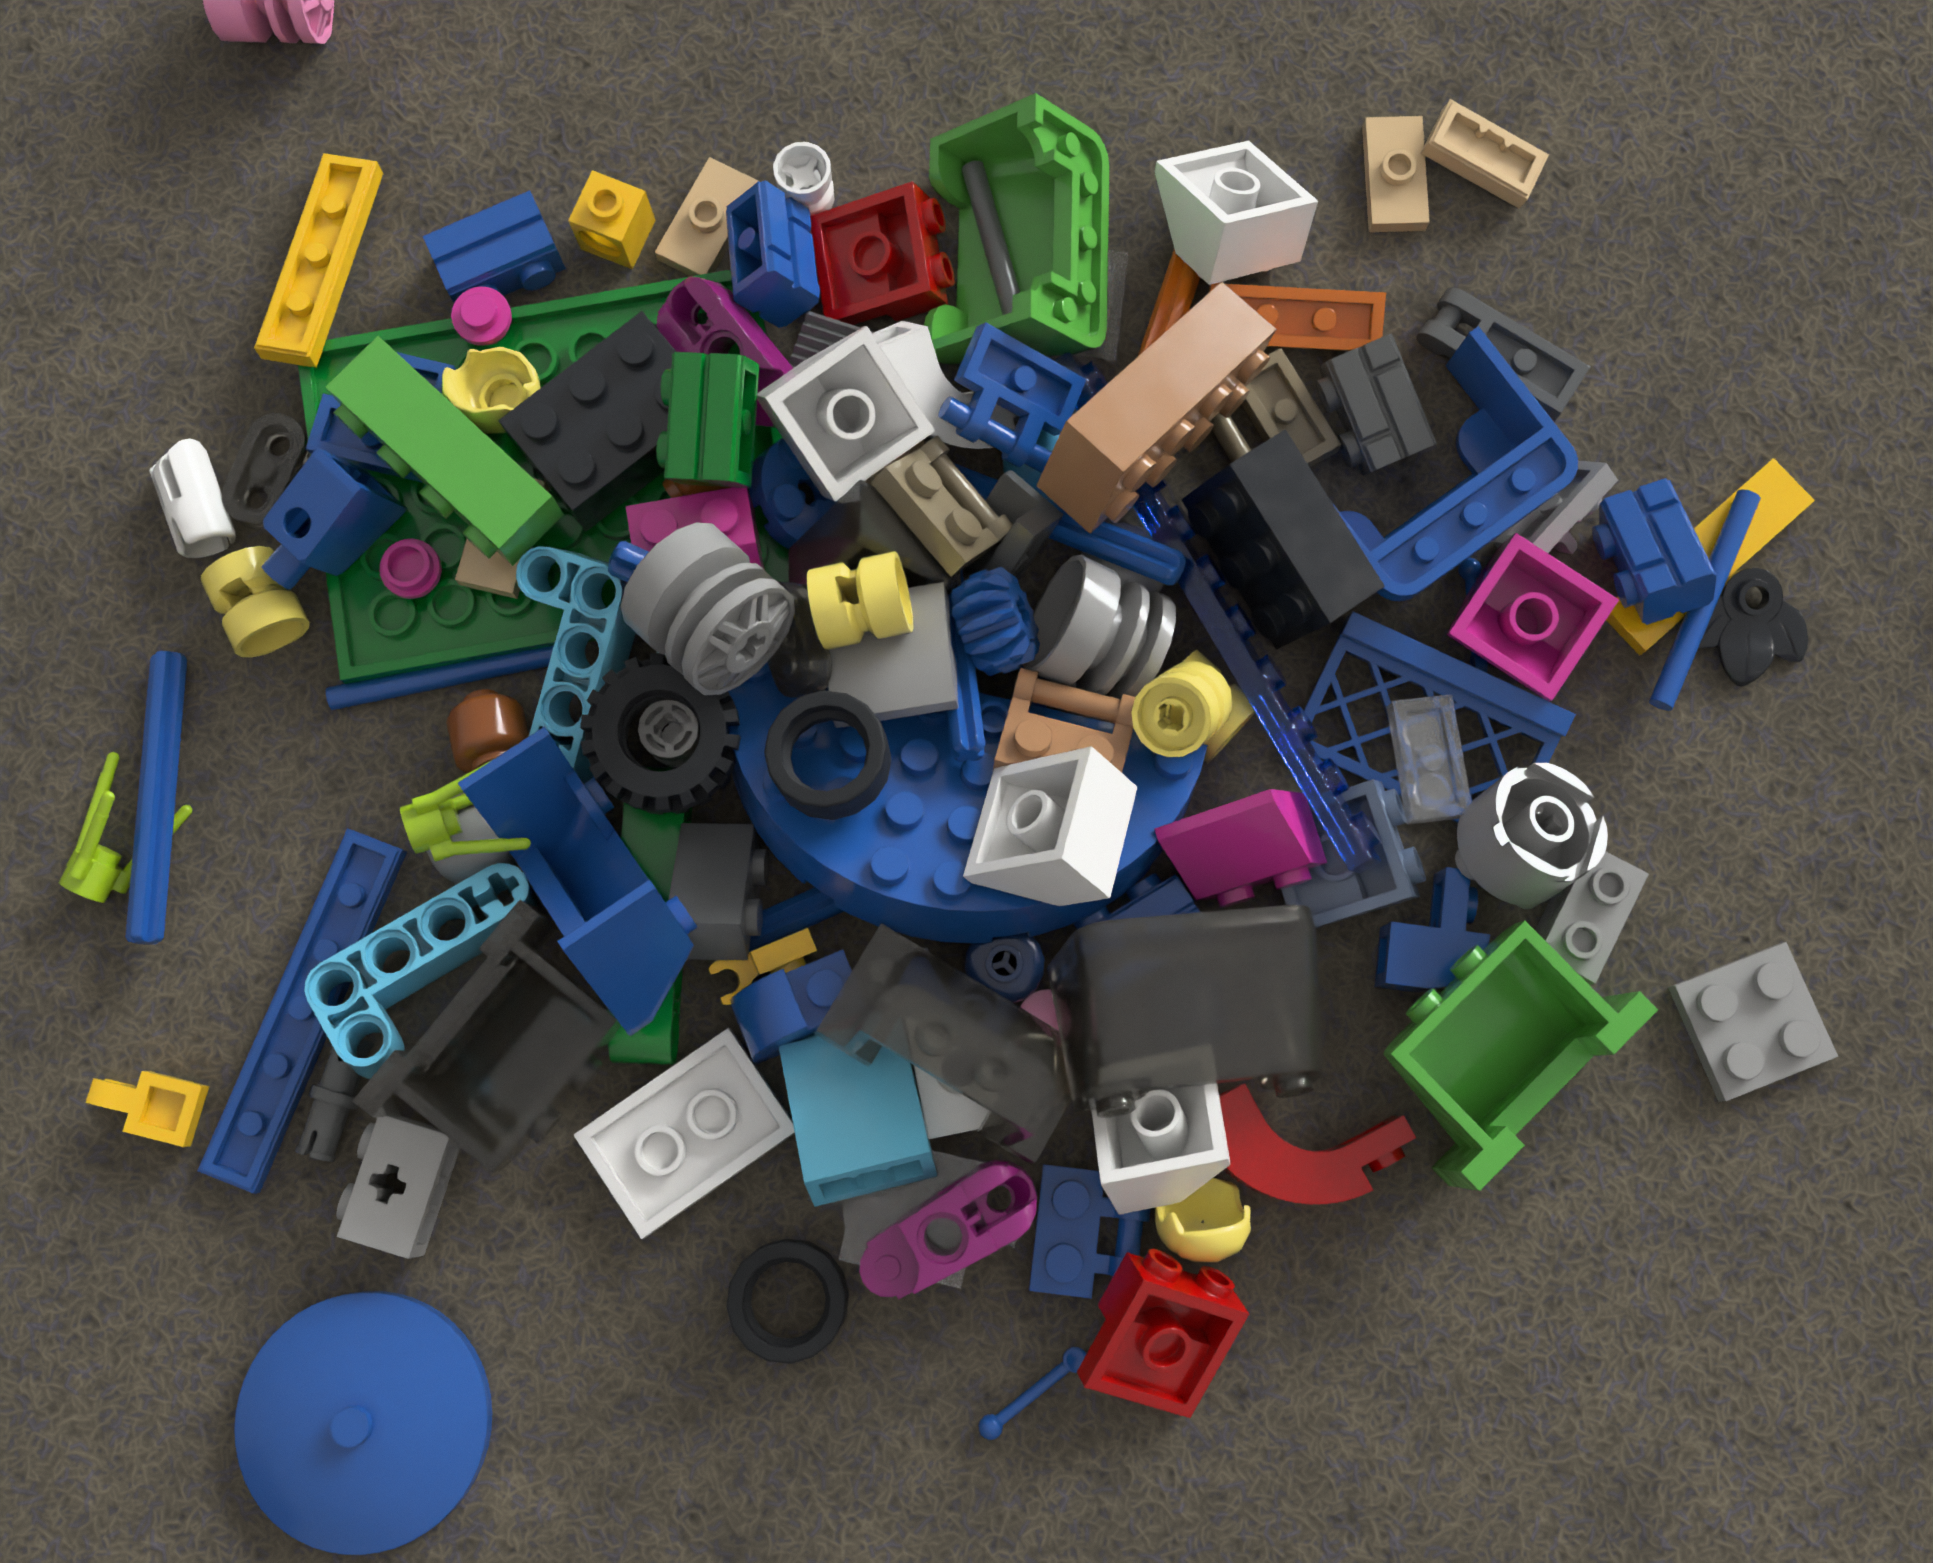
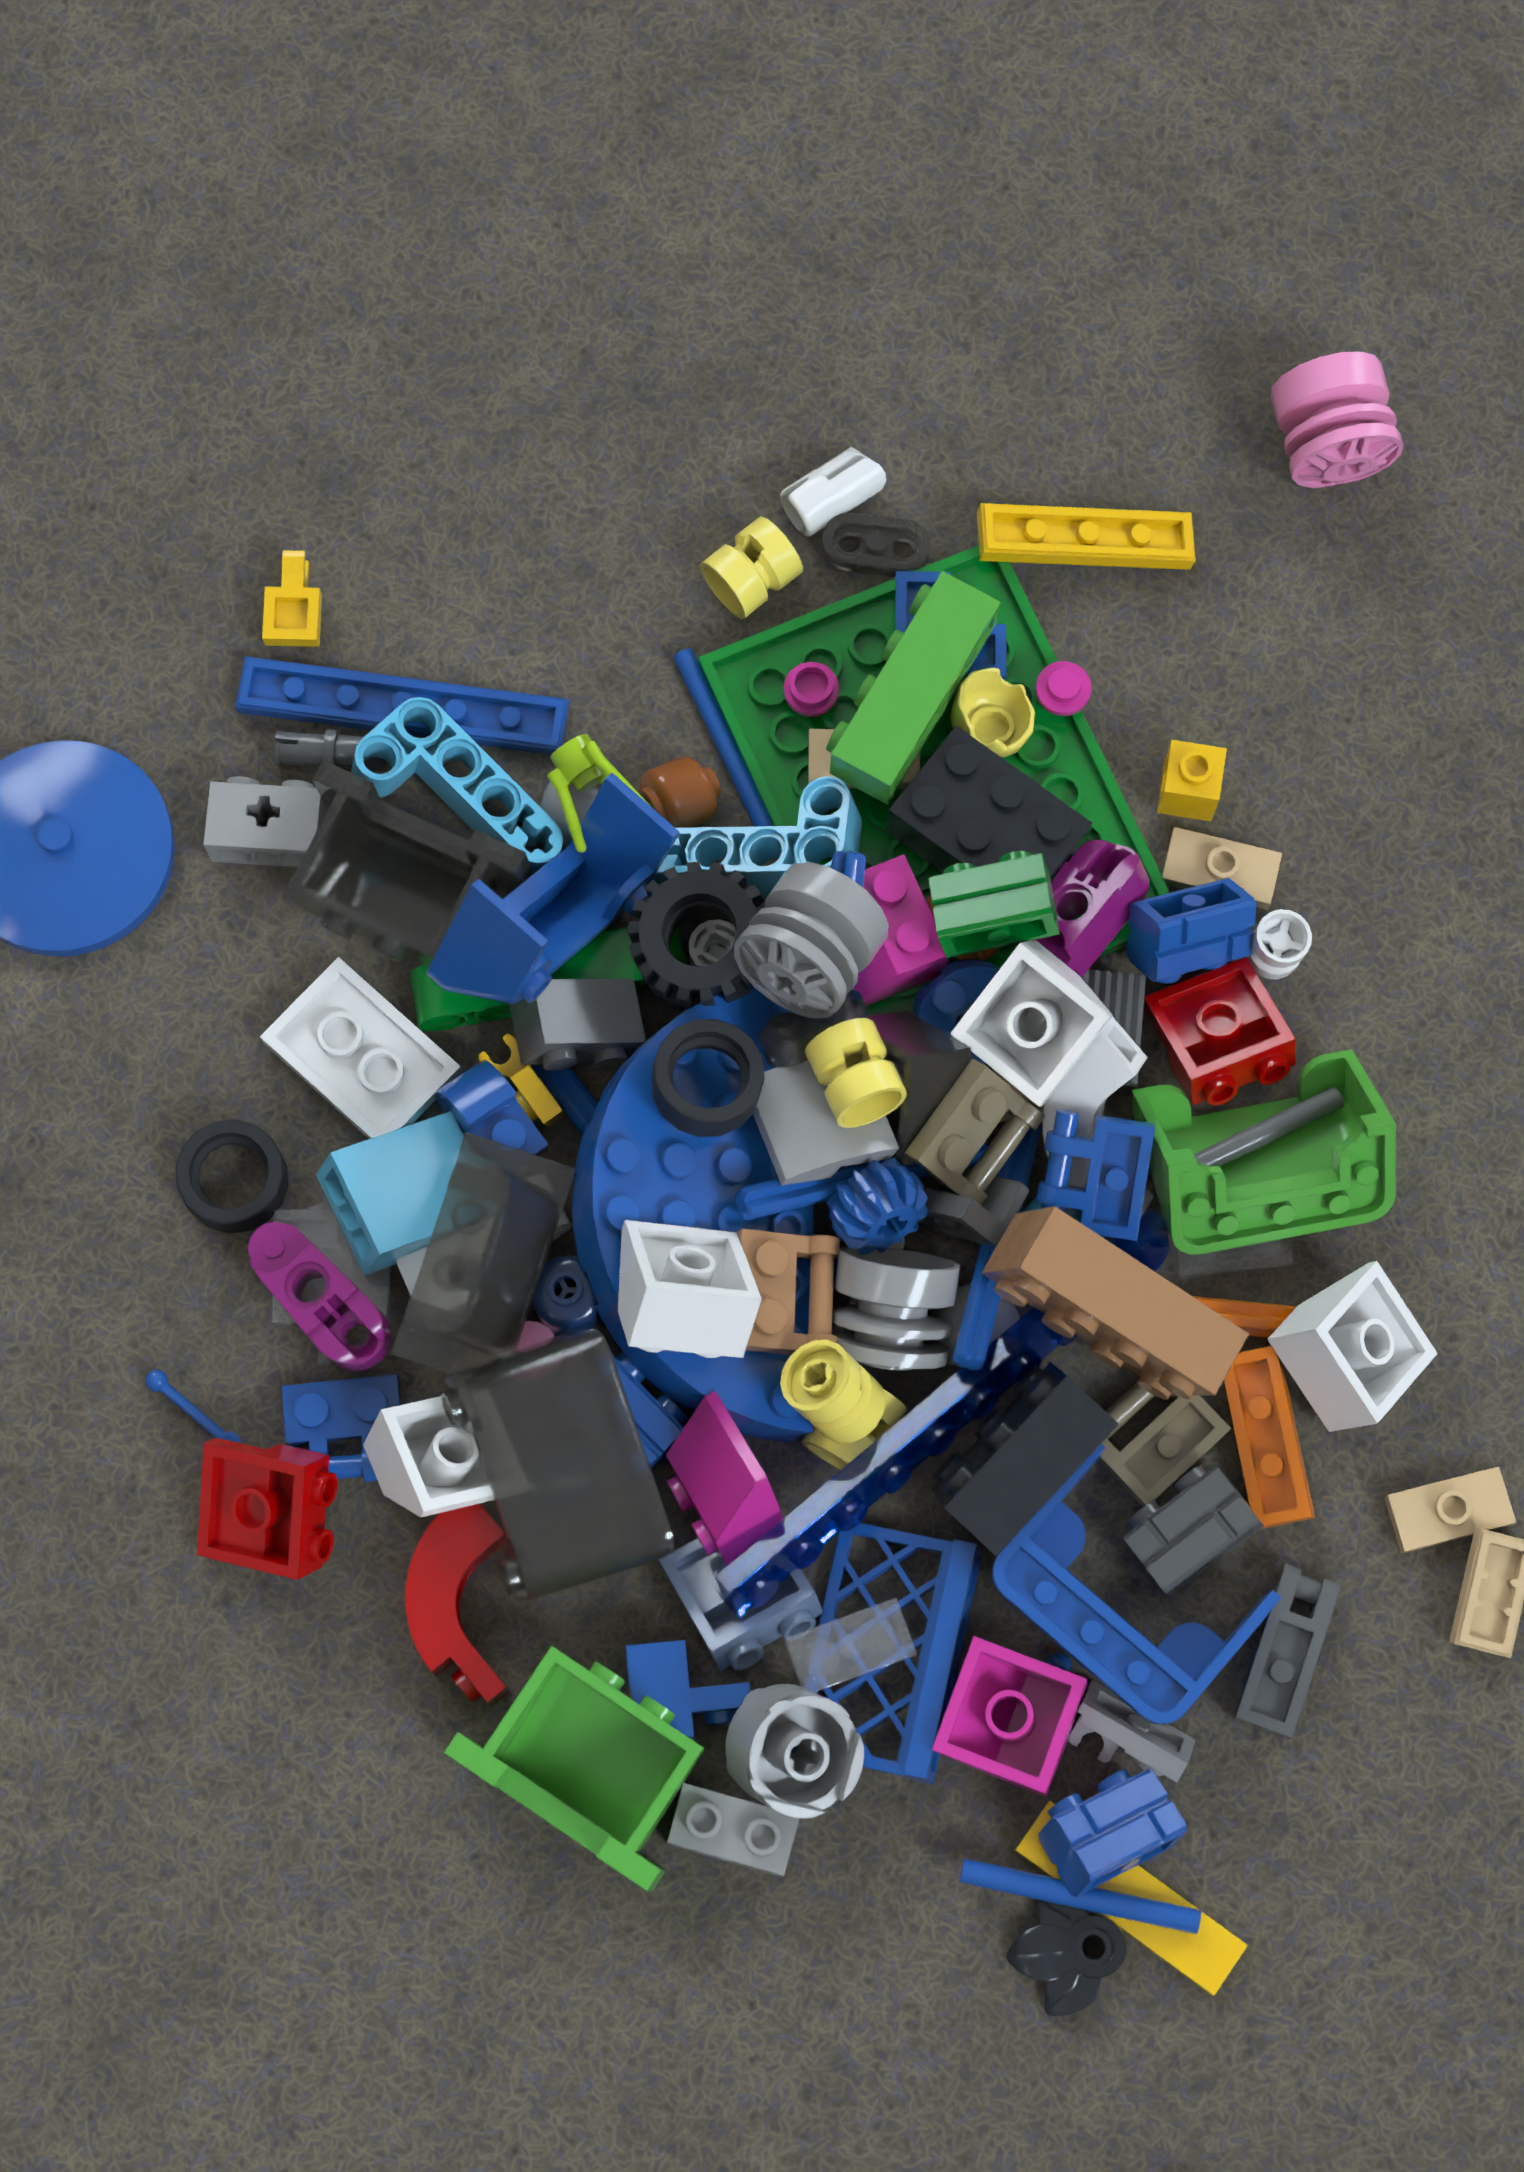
camera: 75 degrees right, 5 degrees down
(93, 867) = (488, 500): lime plant -> none
(156, 798) = (559, 534): blue axle -> none
(327, 518) = (835, 607): blue torso -> none
(496, 249) = (1134, 687): blue brick -> none
(1223, 1229) = (367, 1511): light yellow hair -> none
(1752, 1022) = (672, 2023): light grey plate -> none

